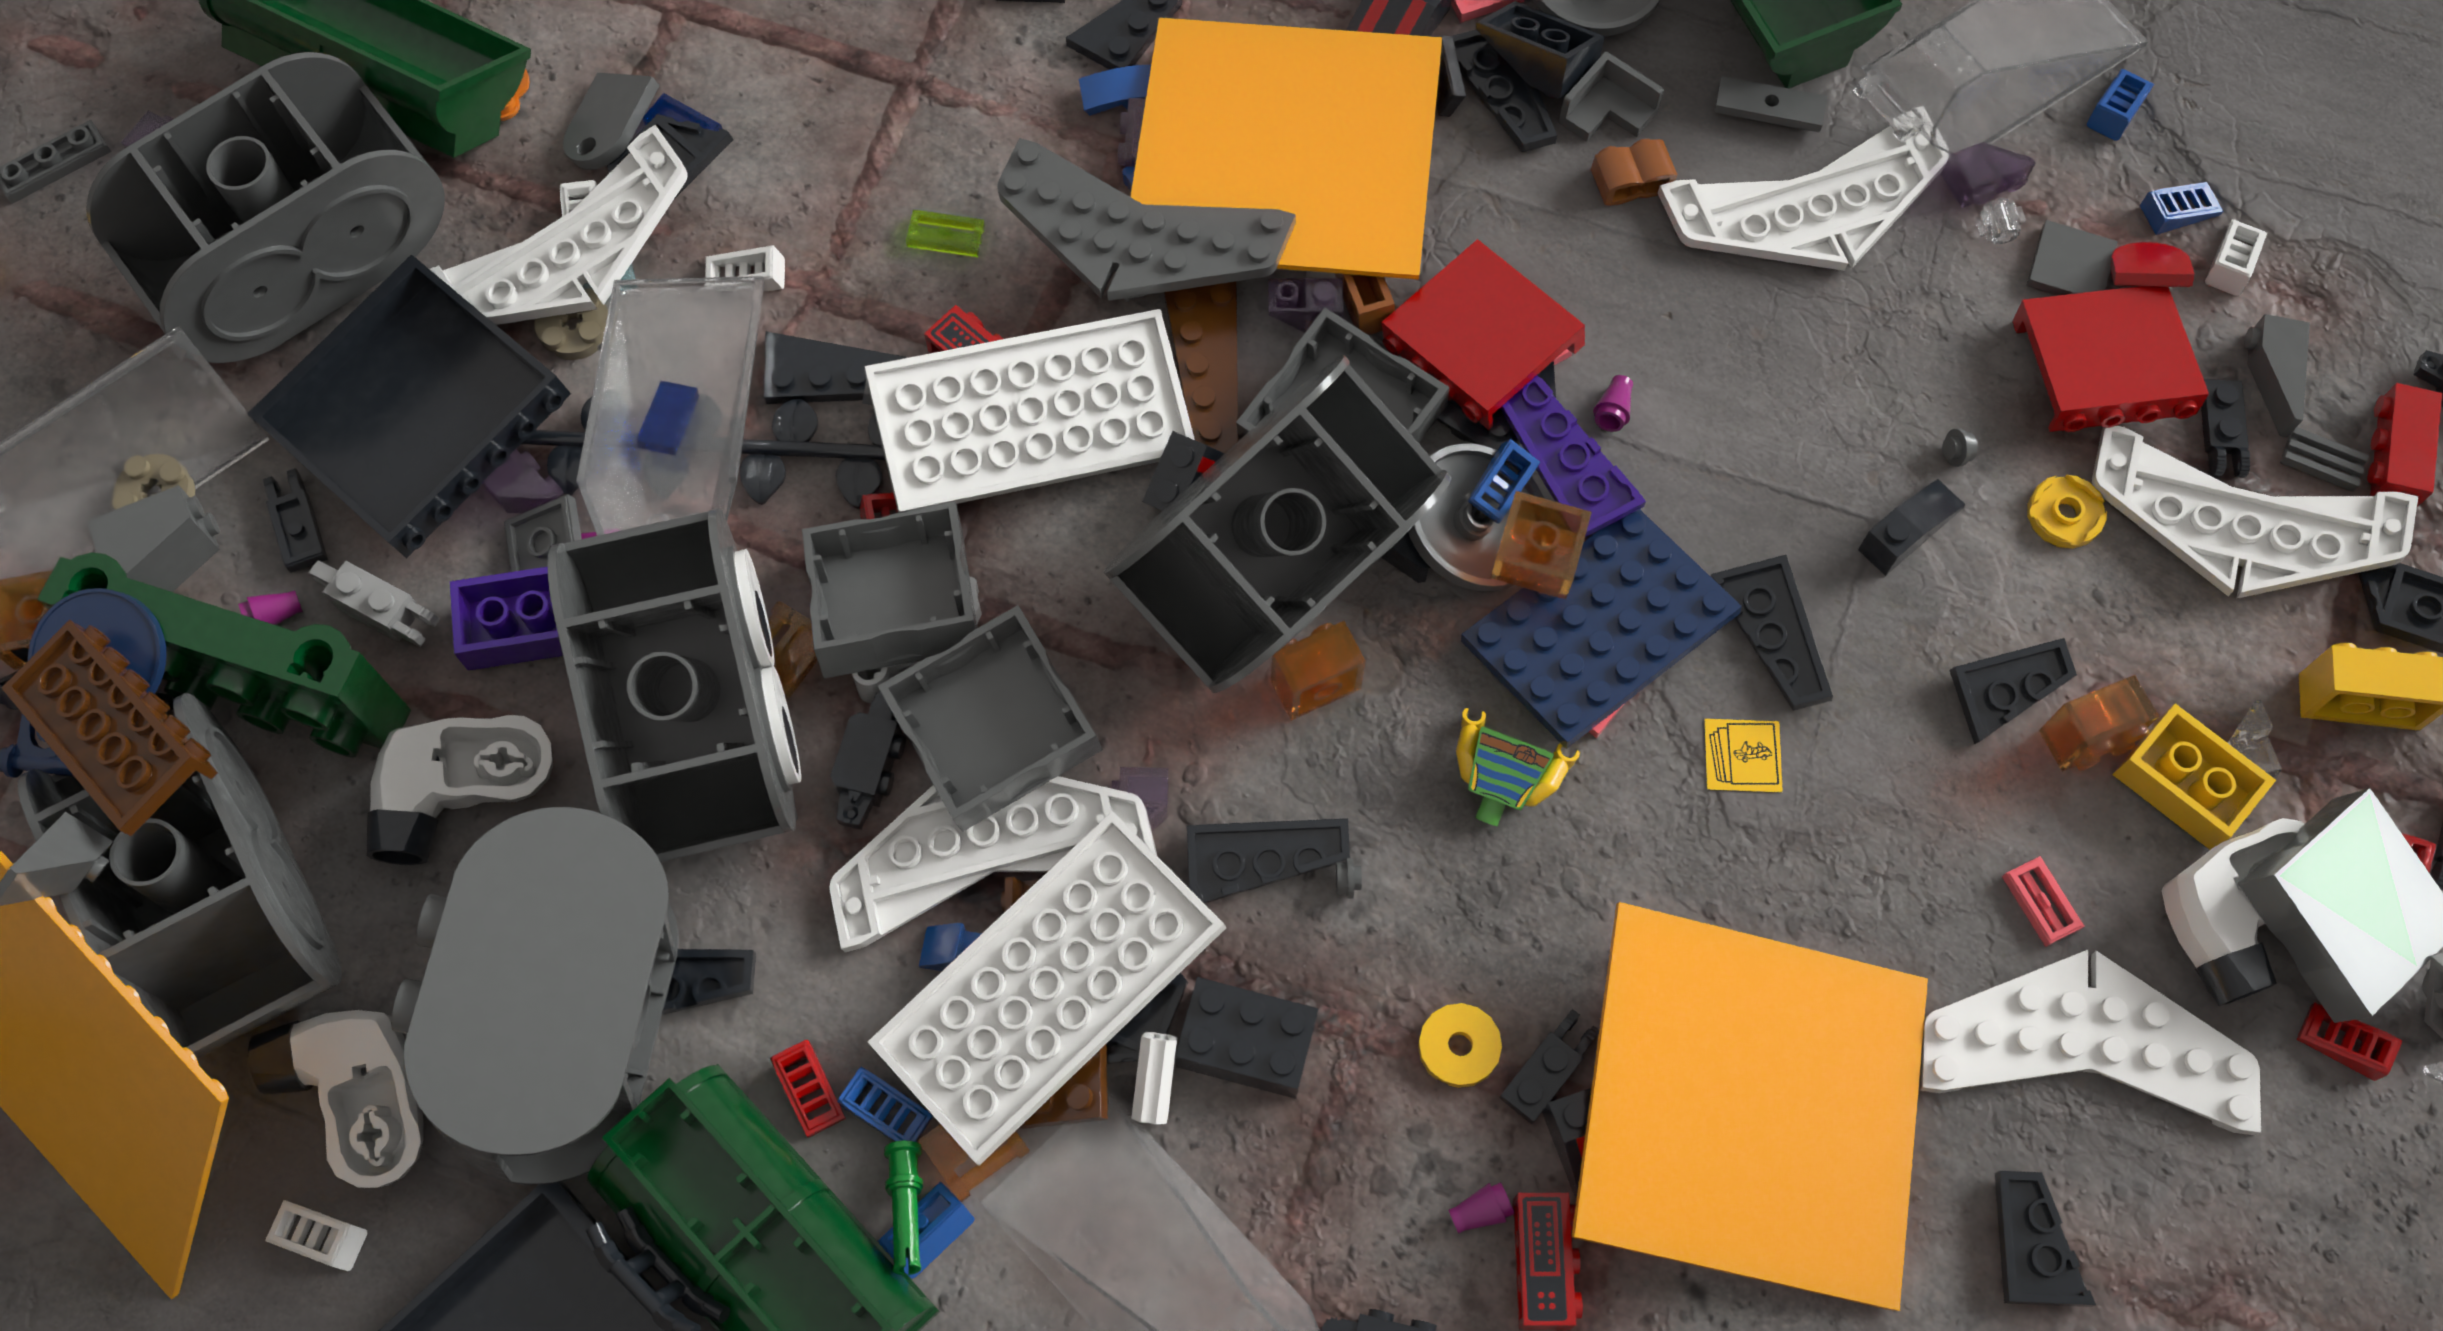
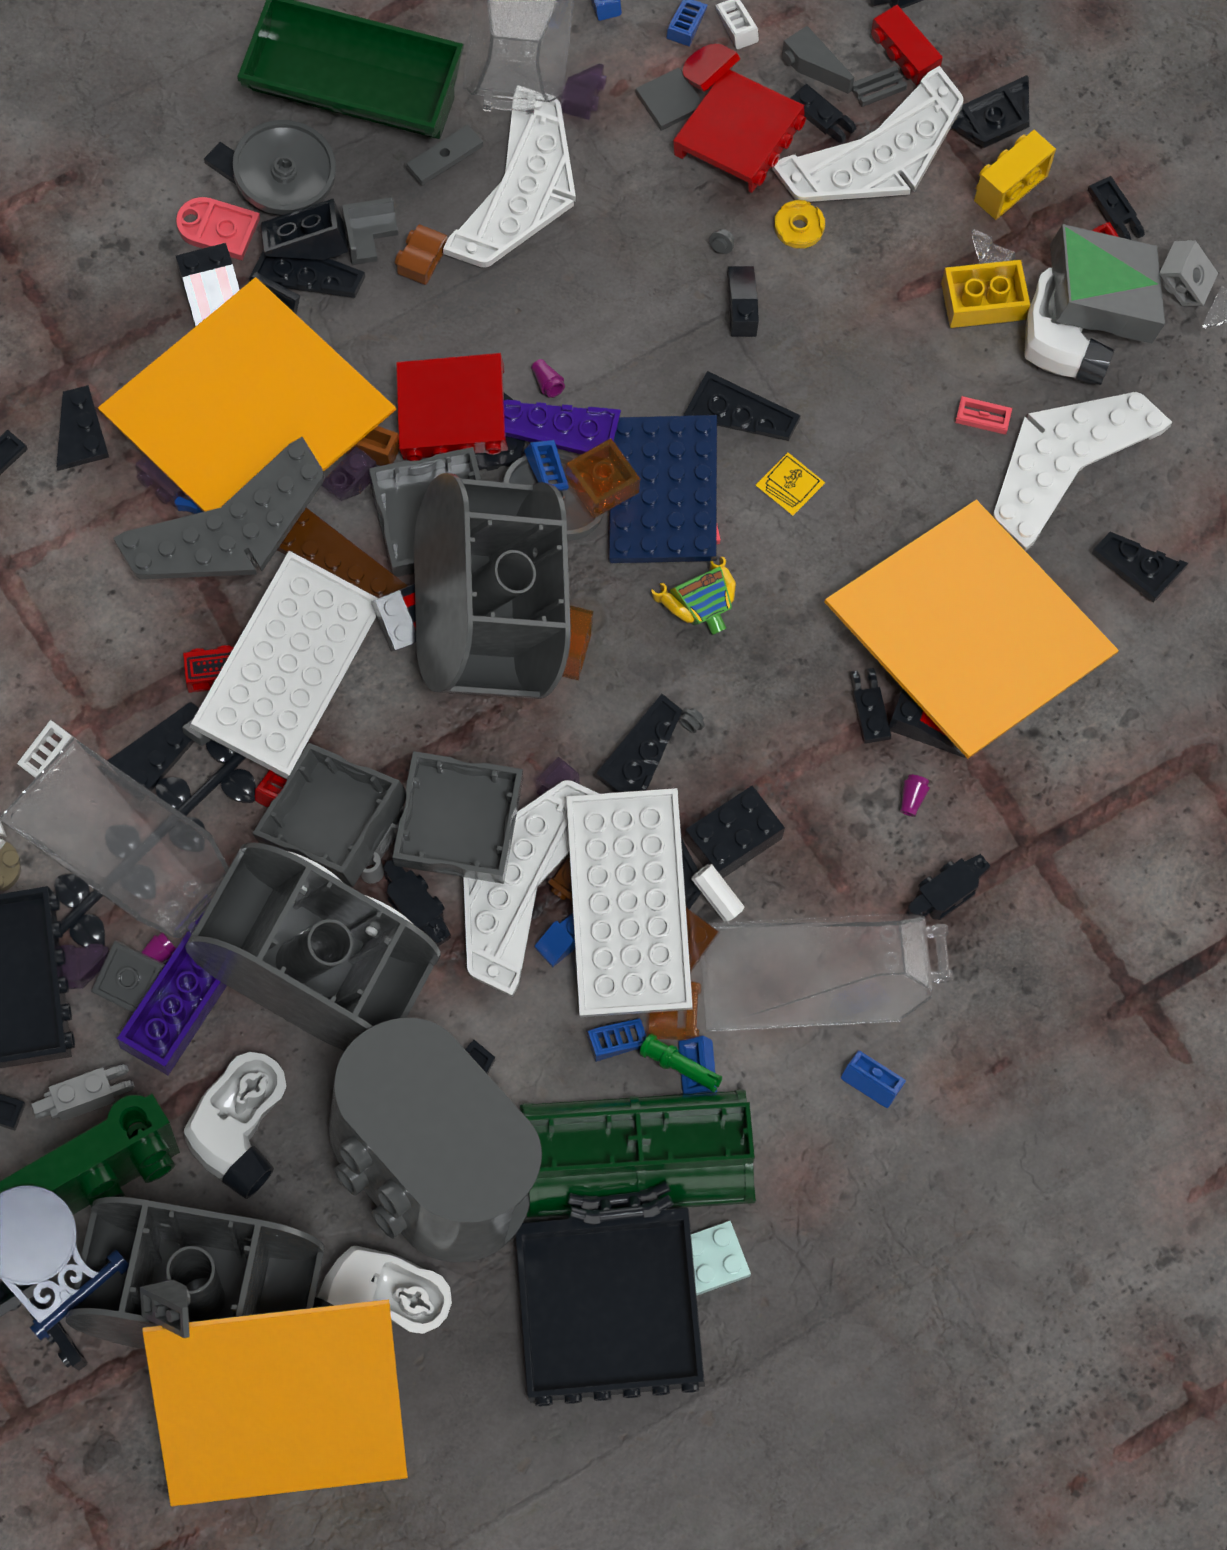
camera: 55 degrees left, 0 degrees up
(106, 725) = (97, 1239): reddish brown bracket -> none
(271, 607) = (32, 1151): magenta cone -> none
(339, 1248) = (460, 1365): white slope -> none
(667, 418) = (118, 852): clear blue tile -> none
(791, 1056) = (575, 1059): red slope -> none
(942, 238) = (128, 634): clear neon green tile -> none
(1114, 87) = (118, 465): blue slope -> none
(1467, 1022) = (823, 724): yellow tile -> none
(1546, 1262) = (963, 786): brick -> none
(2000, 221) = (617, 109): clear gear -> none
(2009, 683) = (864, 332): black wing -> none
(2099, 724) = (924, 310): clear orange brick -> none
(2371, 1038) = (1179, 331): red slope -> none

